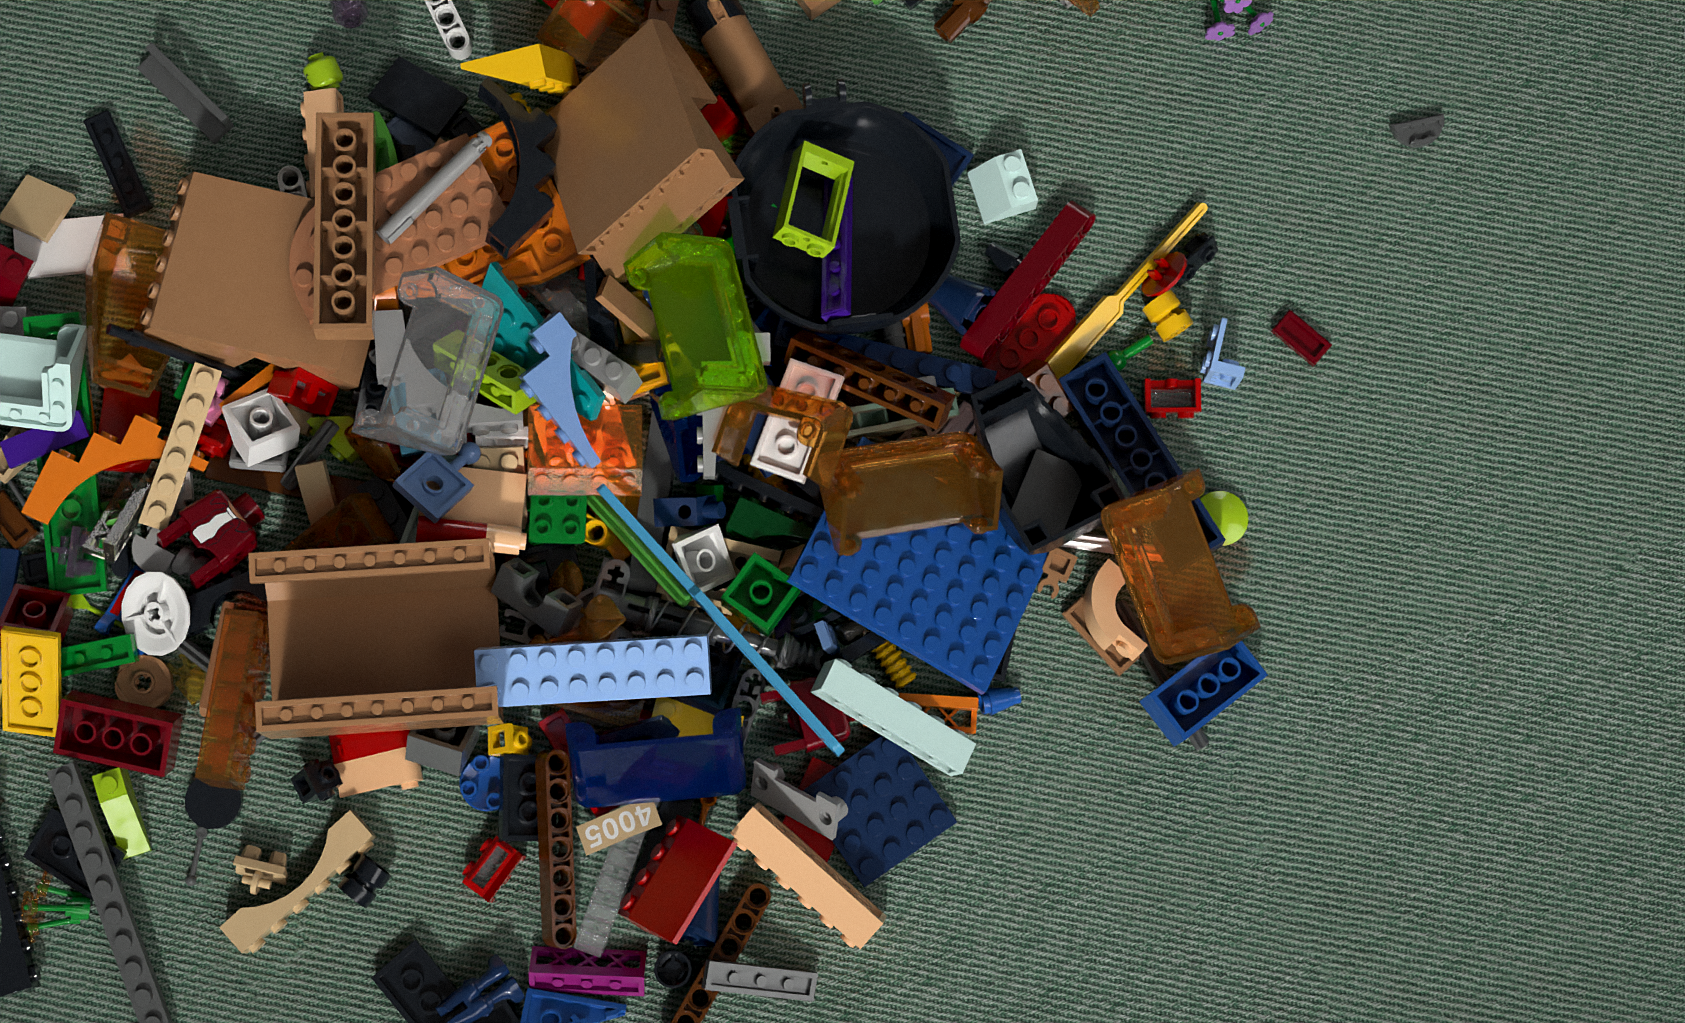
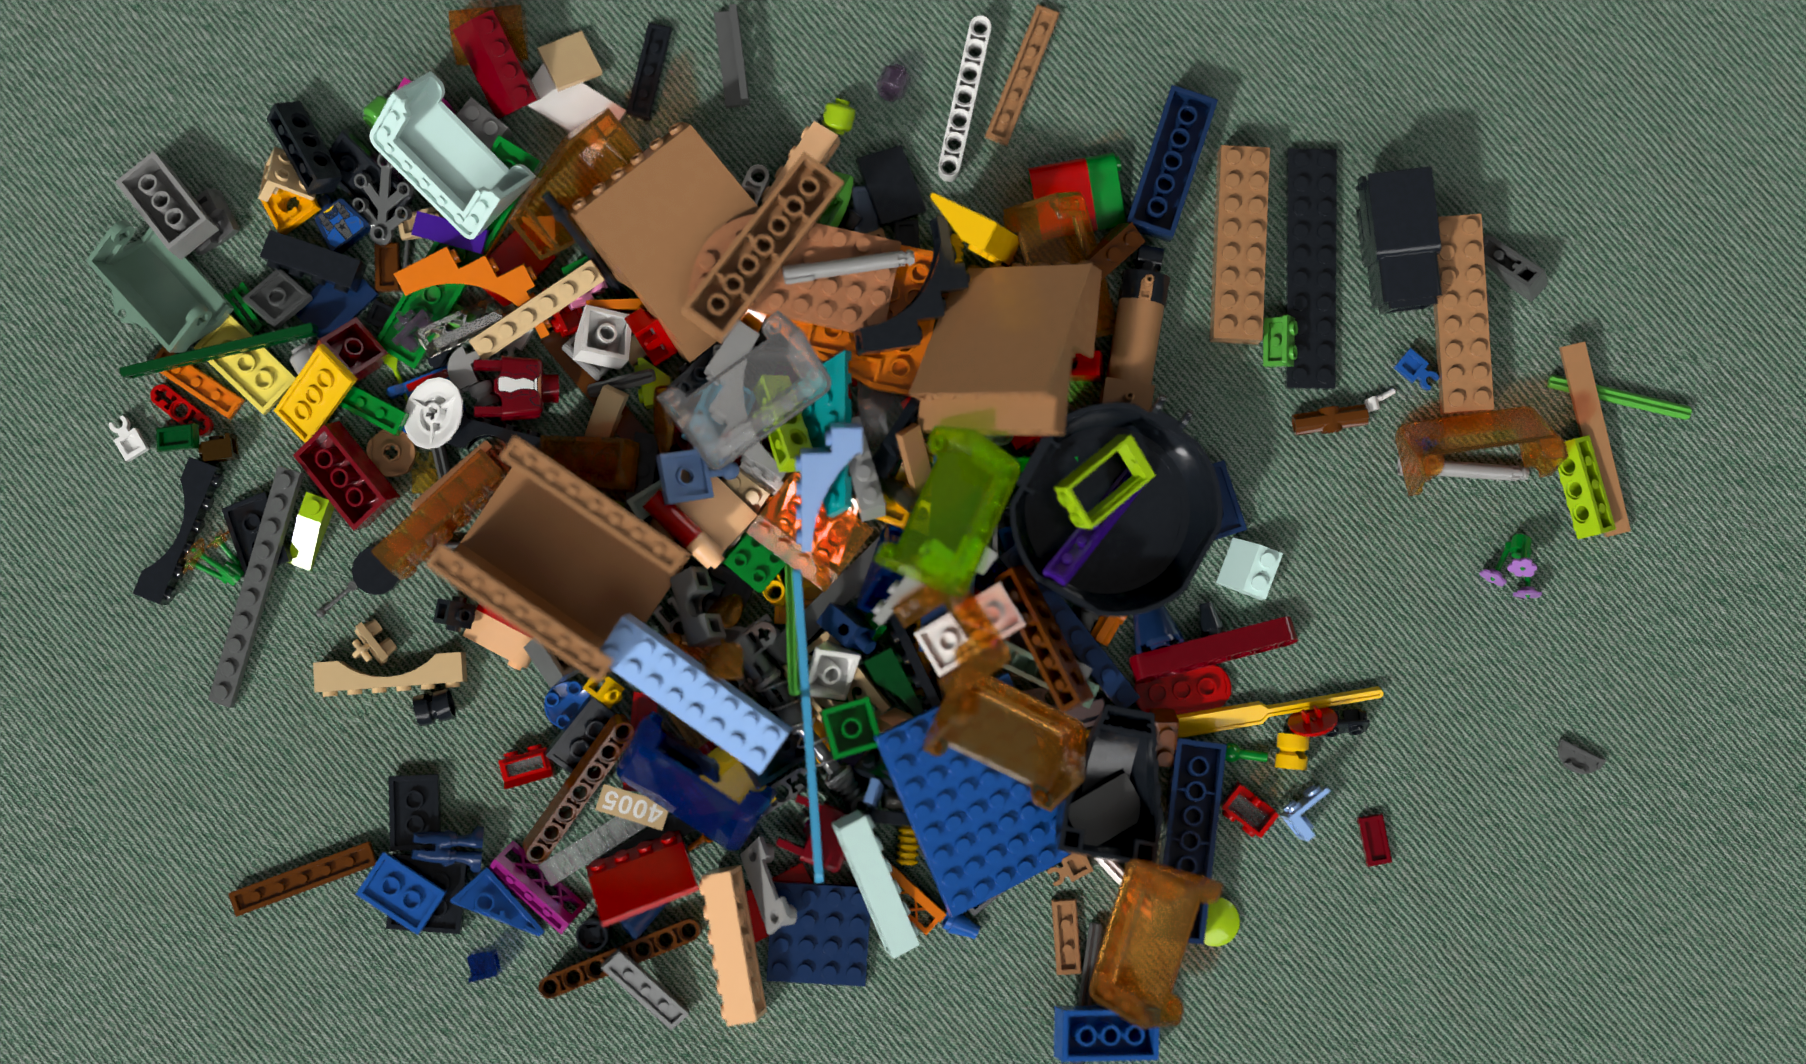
camera: 40 degrees right, 5 degrees up
(1102, 616) = (1078, 922): light nougat arch -> none

